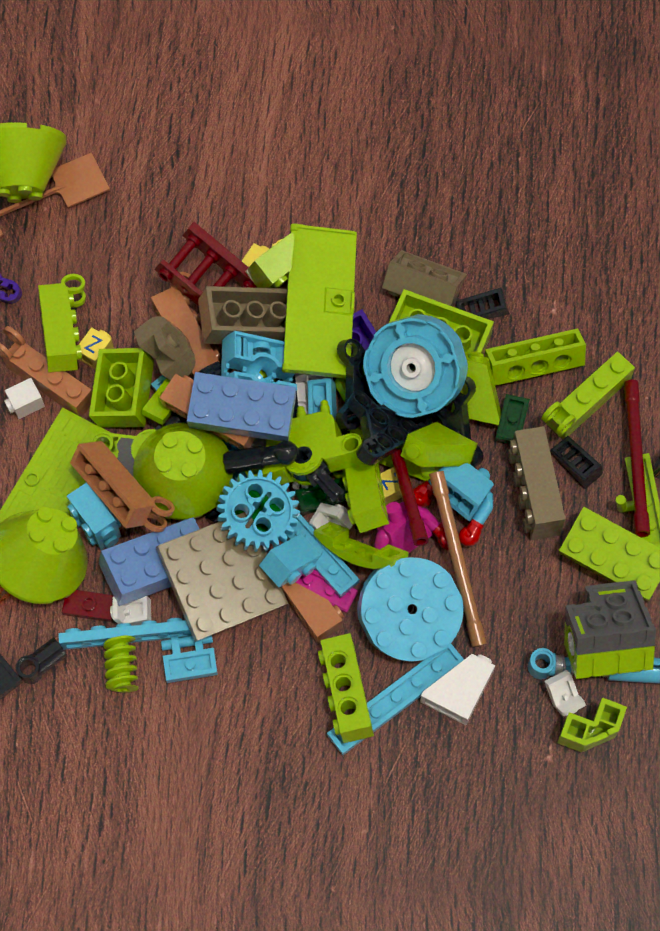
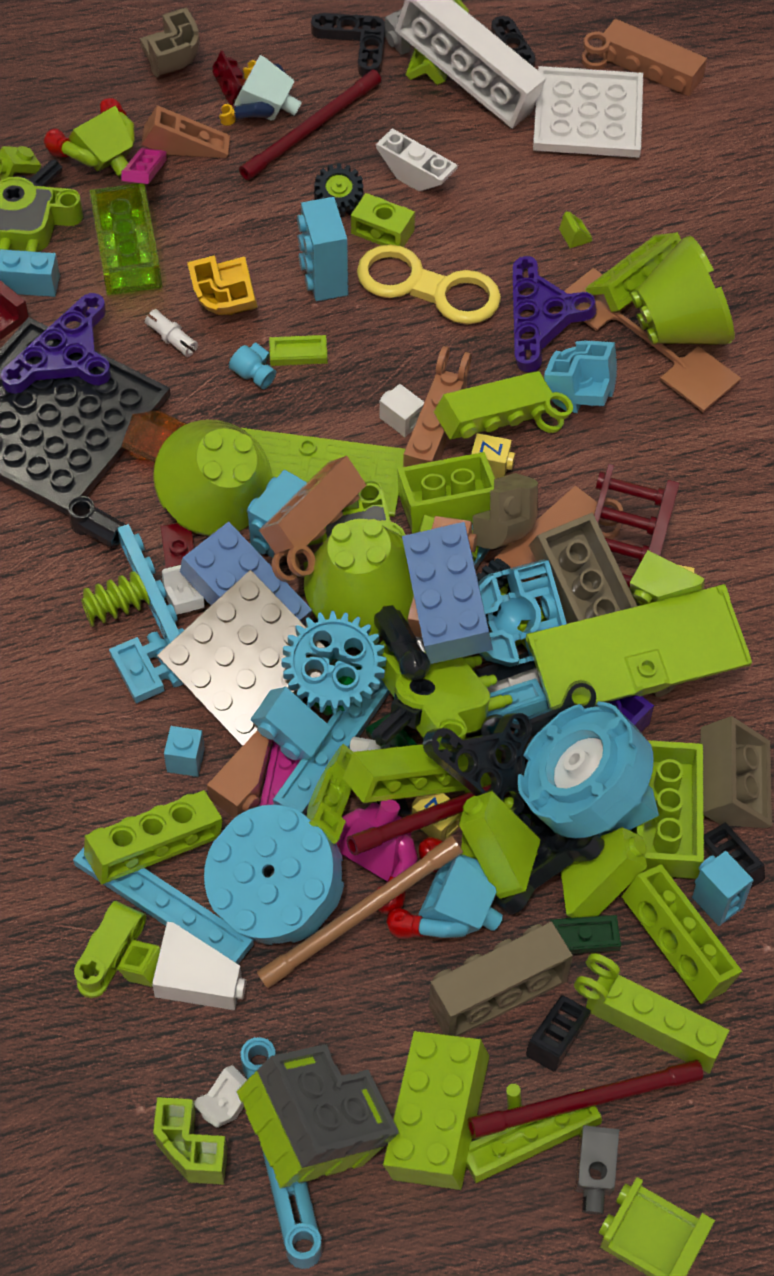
camera: 70 degrees right, 10 degrees down
(48, 255) = (583, 373): none -> medium azure brick
(277, 647) = (184, 751): none -> medium azure brick
(421, 745) = (107, 948): none -> lime piece
(443, 724) = (139, 962): none -> lime slope
(512, 318) = (721, 887): none -> medium azure brick

